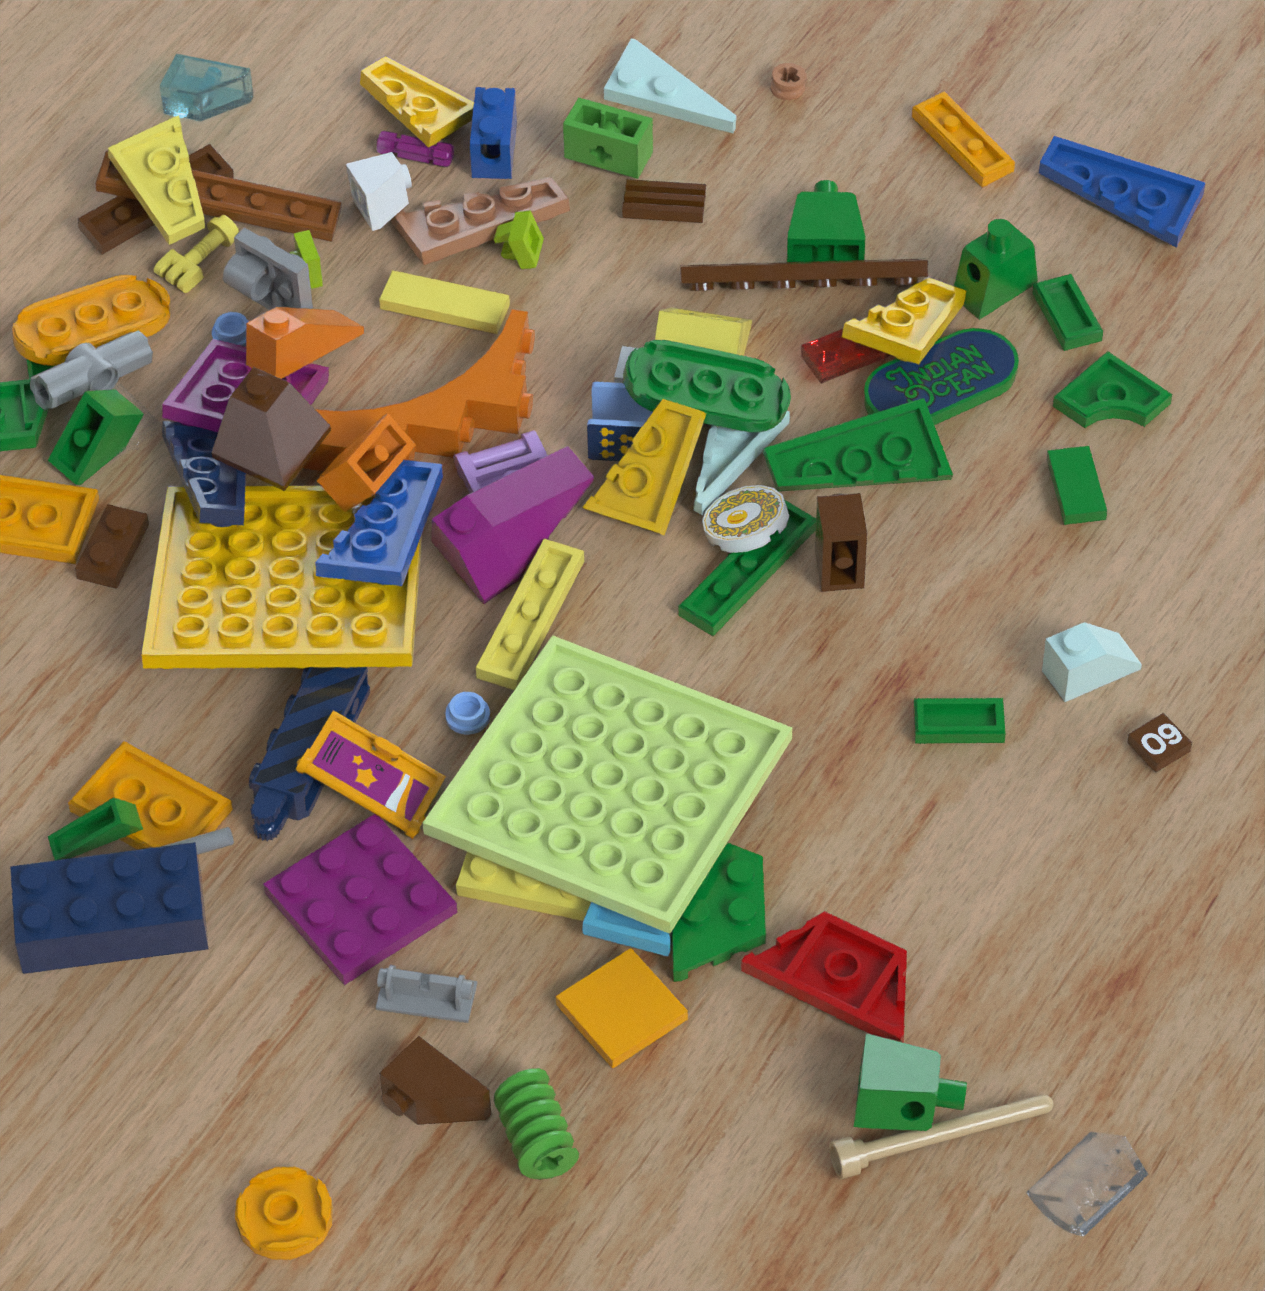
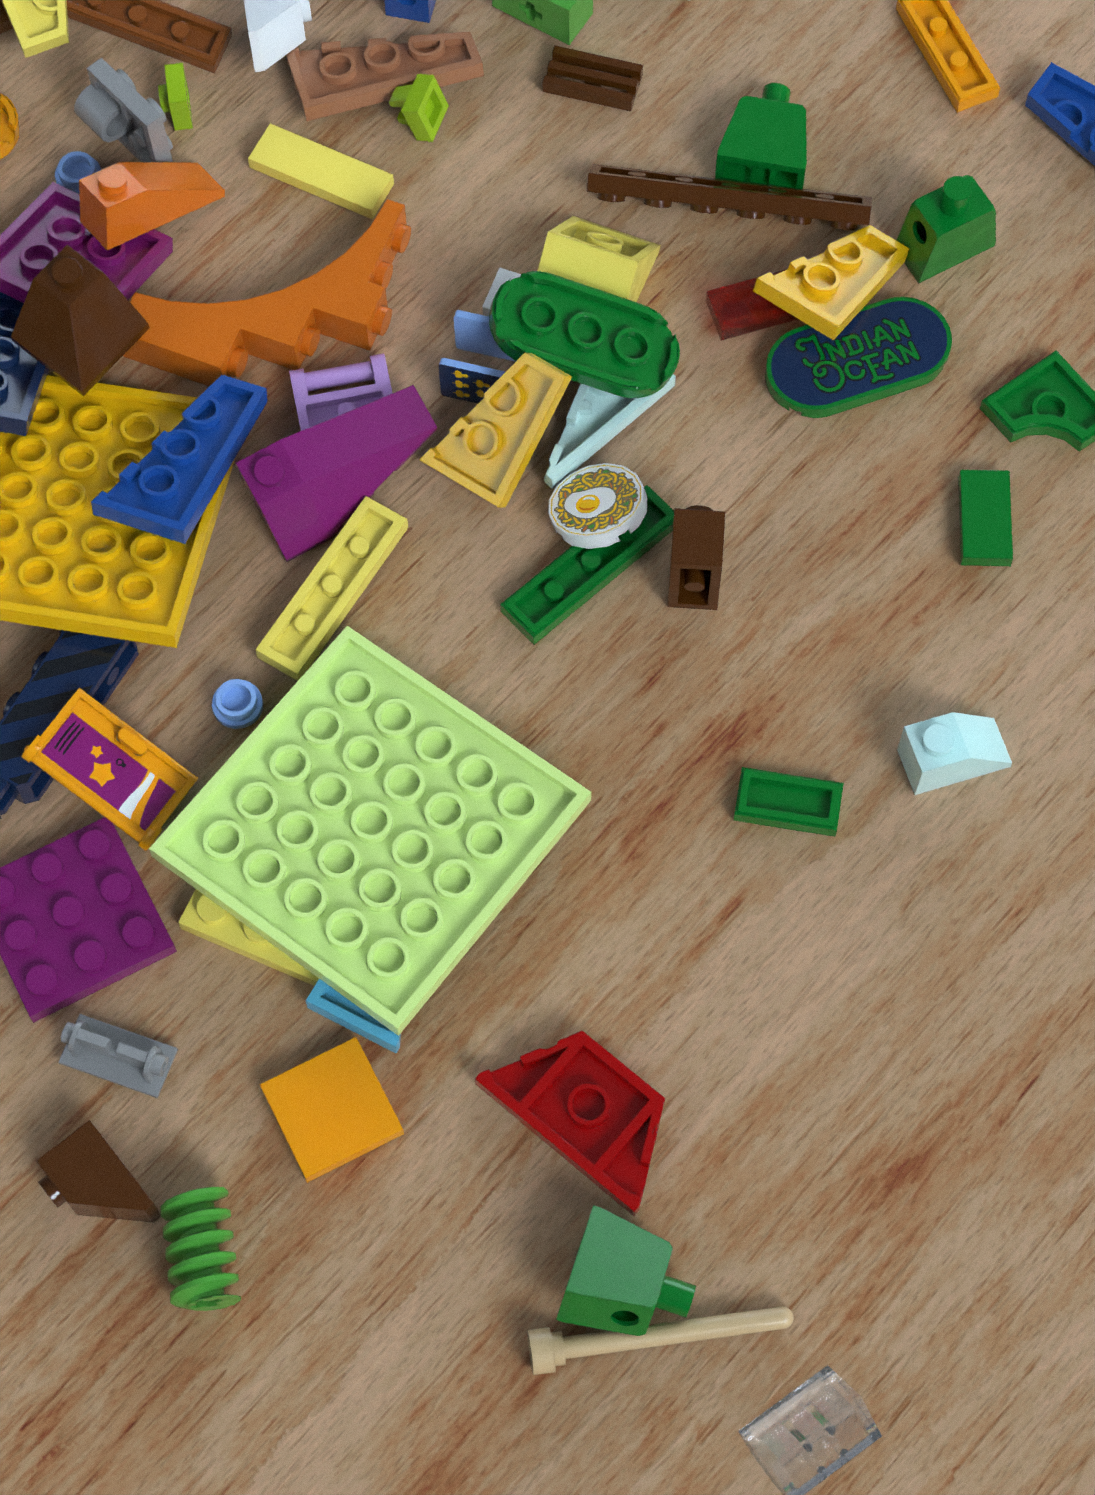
camera: 10 degrees right, 15 degrees up
(184, 269) = (40, 86): light yellow hinge -> none
(366, 463) = (180, 376): orange slope -> none
(723, 914) = (471, 1009): green wing -> none
(866, 451) = (755, 439): green wing -> none
(1067, 312) = (1021, 290): green tile -> none
(1159, 742) = (1011, 869): reddish brown tile -> none

